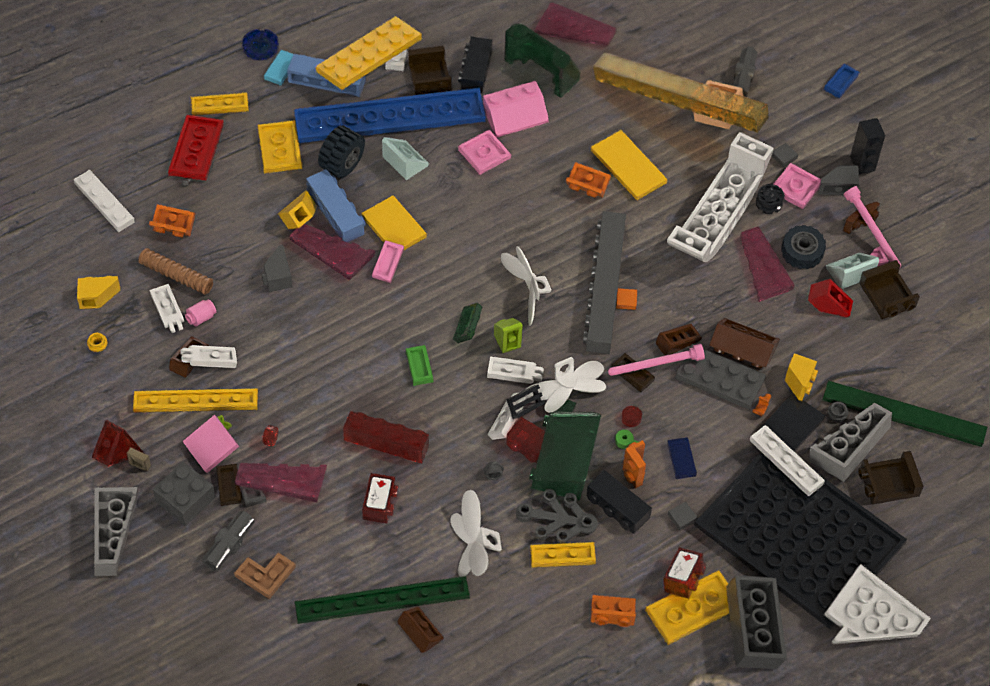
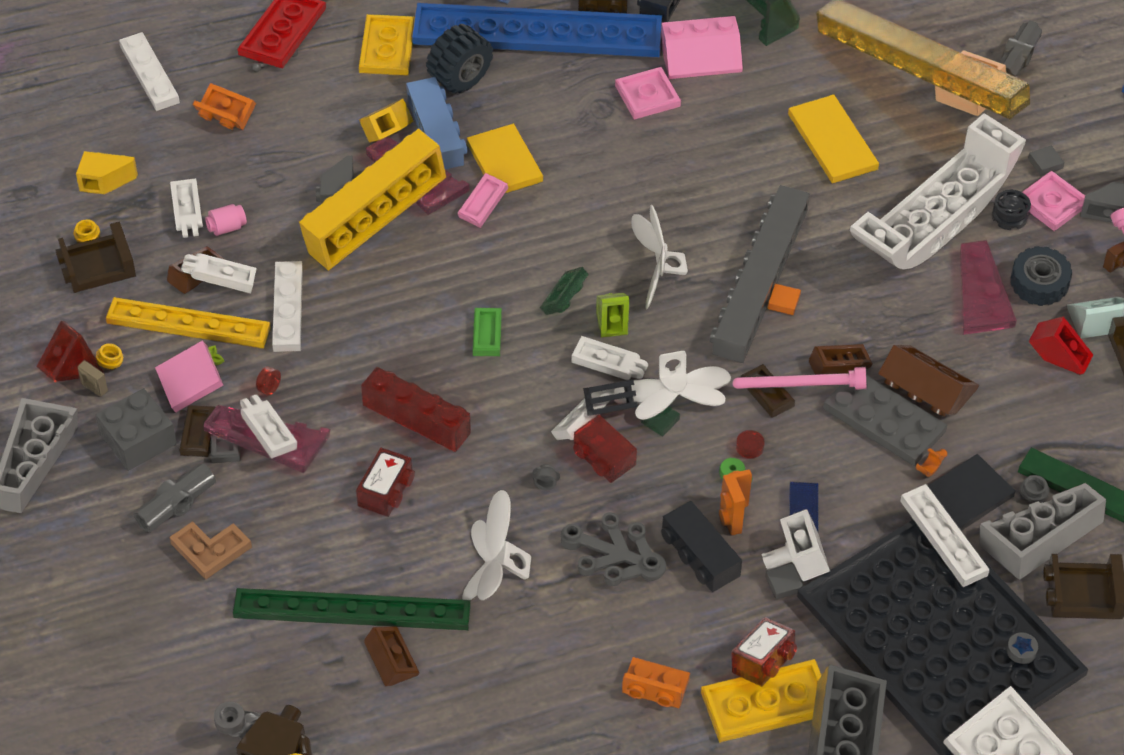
camera: 15 degrees right, 5 degrees down
(112, 363) = (96, 260): none -> dark brown panel
(145, 439) = (109, 356): none -> yellow plate
(175, 271) = (210, 166): medium nougat piece -> none
(266, 373) = (287, 306): none -> white plate
(283, 473) = (267, 426): none -> white hinge
(309, 278) = (373, 199): none -> yellow brick
(402, 157) = (539, 80): light aqua slope -> none
(562, 554) = (608, 599): yellow tile -> none
(565, 452) = (646, 469): clear green windscreen -> none
(588, 180) = (773, 146): orange bracket -> none
(689, 490) = (801, 548): none -> white brick
(799, 374) = (993, 432): yellow slope -> none
(859, 533) = (1022, 648): none -> dark grey tile

